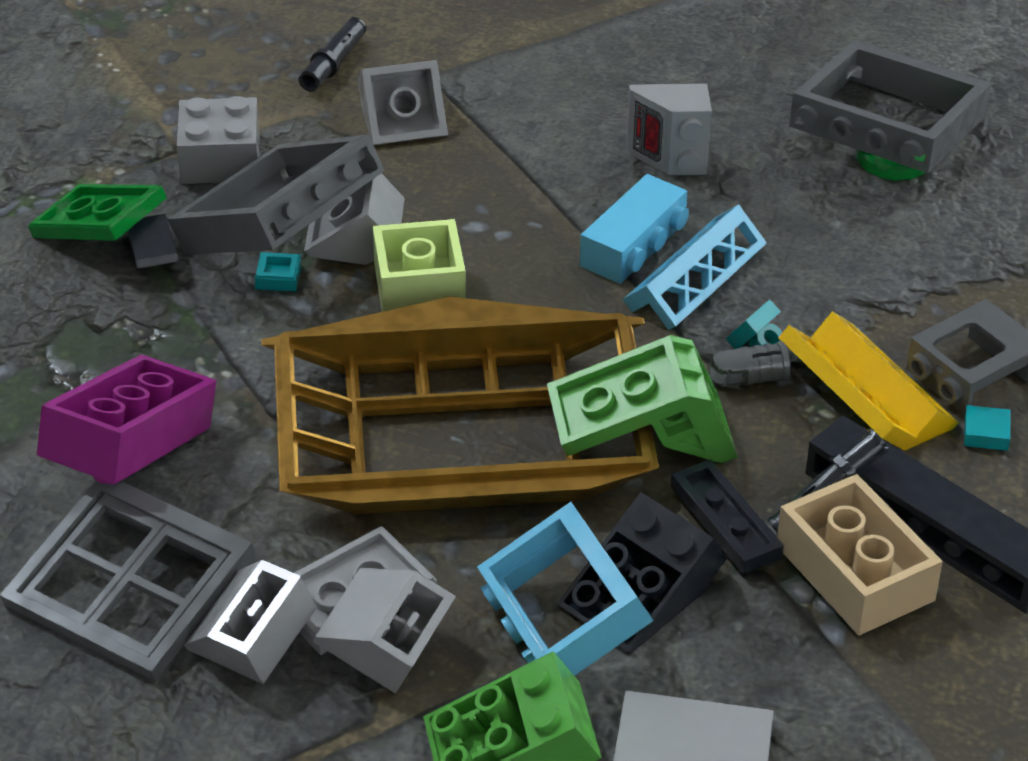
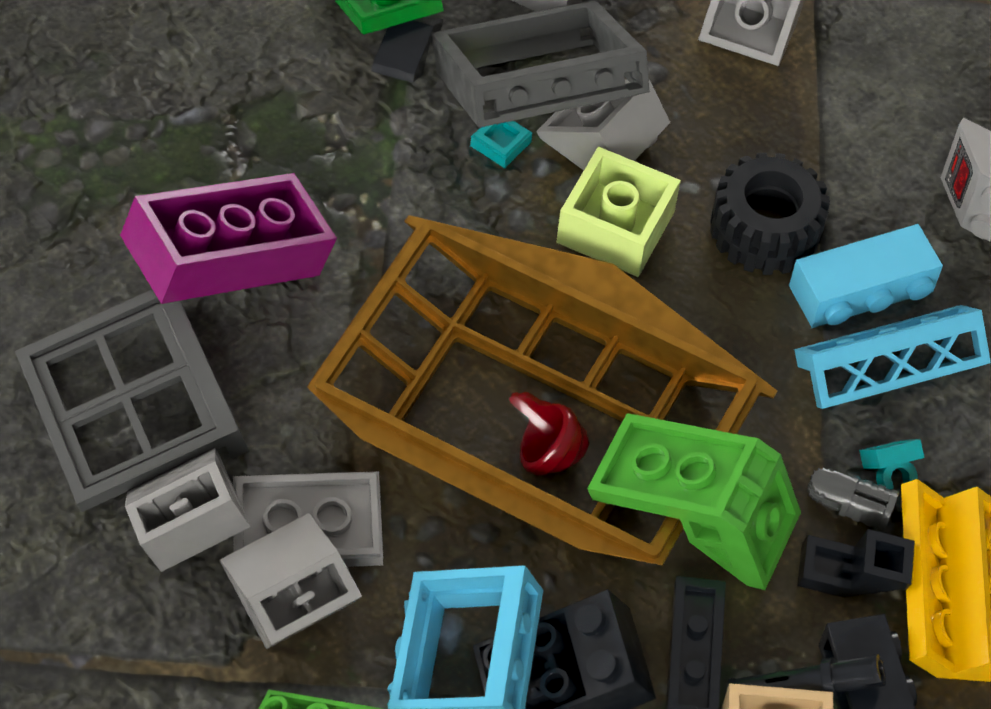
camera: 30 degrees right, 15 degrees up
(495, 433) = (552, 436): none -> dark red hat
(531, 219) = (775, 186): none -> black tyre
(801, 399) = (870, 567): none -> black slope

